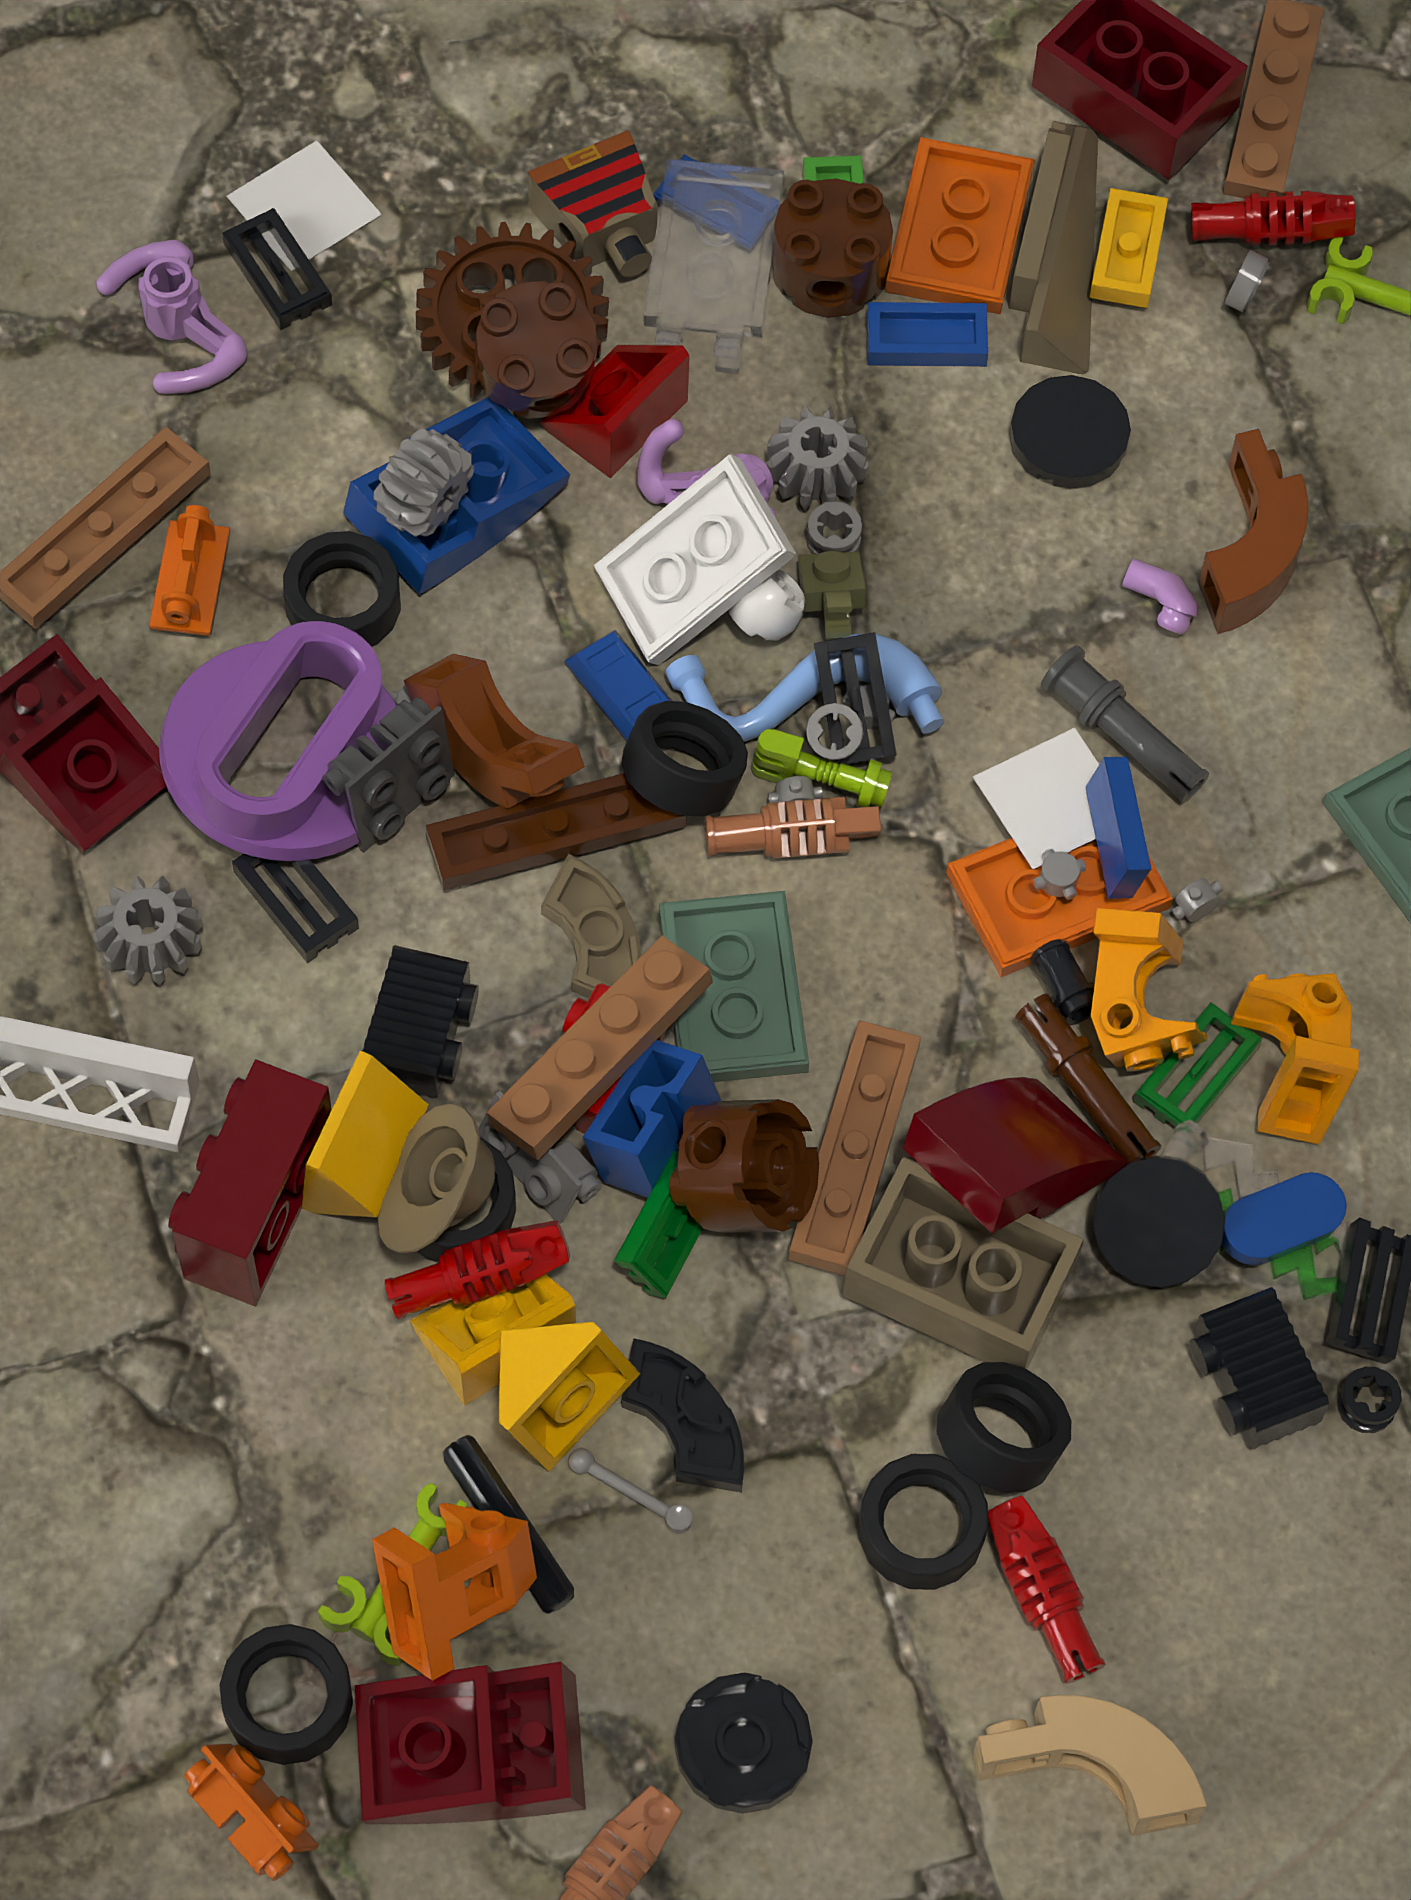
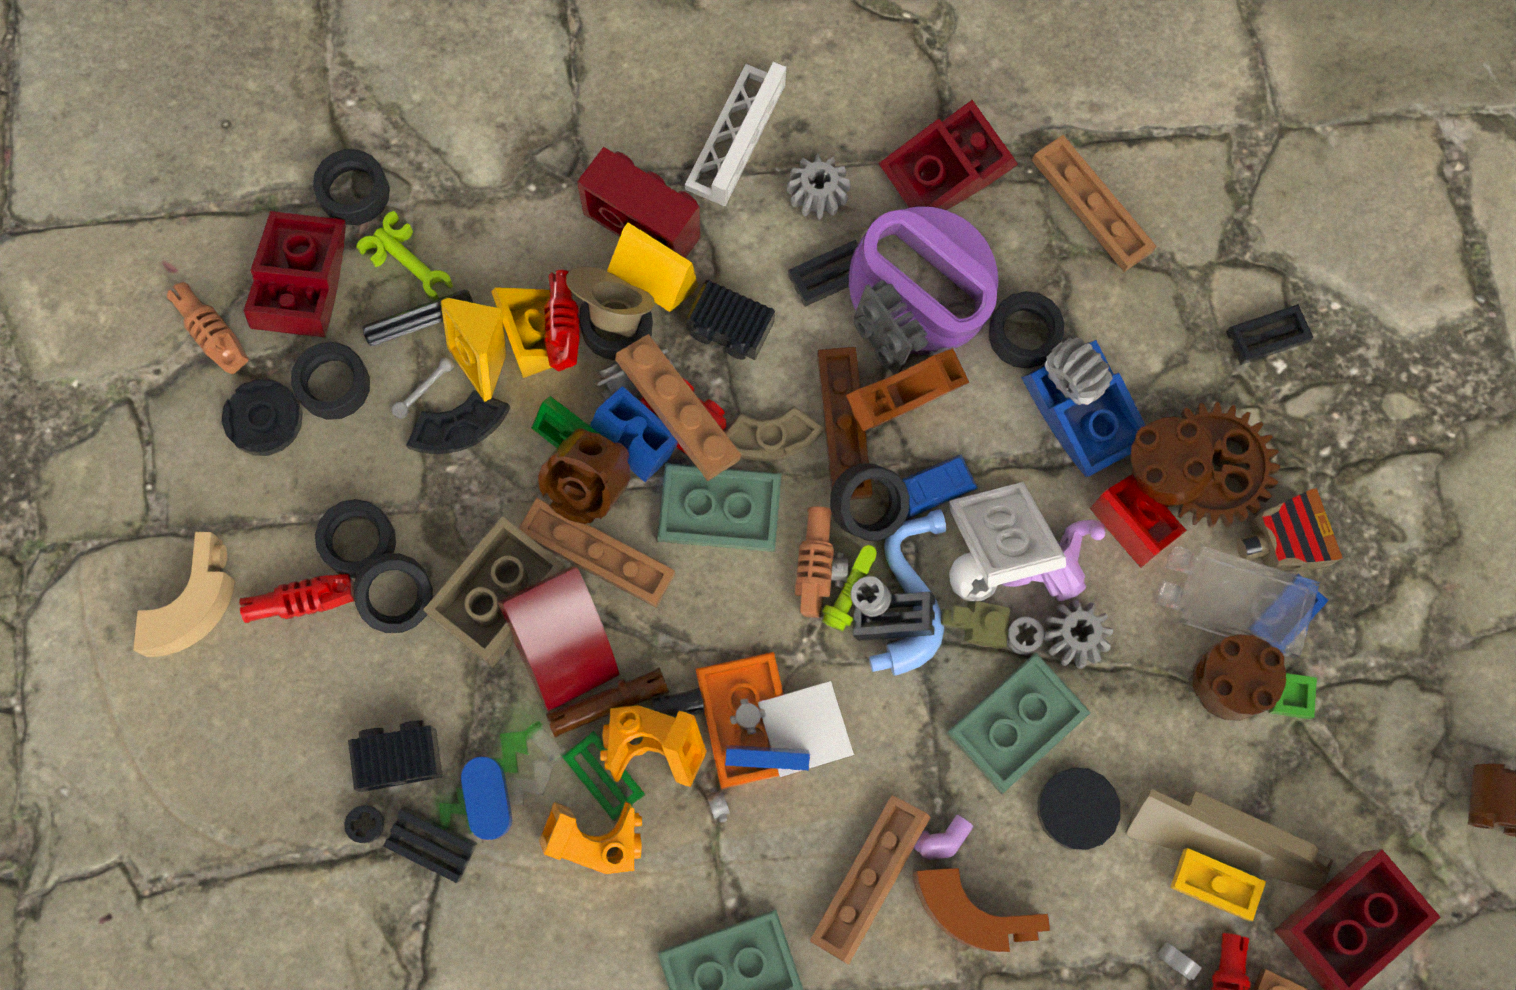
camera: 100 degrees right, 10 degrees up
(177, 311) = (1245, 265): lavender piece -> none
(190, 573) = (1053, 248): orange hinge -> none
(271, 1822) = (296, 165): orange hinge -> none
(311, 198) = (1321, 364): white sticker -> none
(427, 1591) = (369, 273): orange tile -> none
(663, 1584) = (321, 354): none -> black tyre
(927, 334) = (1168, 731): blue tile -> none
(959, 224) = (1254, 773): orange tile -> none
(966, 525) = (1018, 723): none -> sand green tile
(1104, 706) = (864, 778): dark grey pin -> none
(1159, 1221) = (501, 719): black tile -> none
(1248, 674) = (870, 879): none -> medium nougat plate

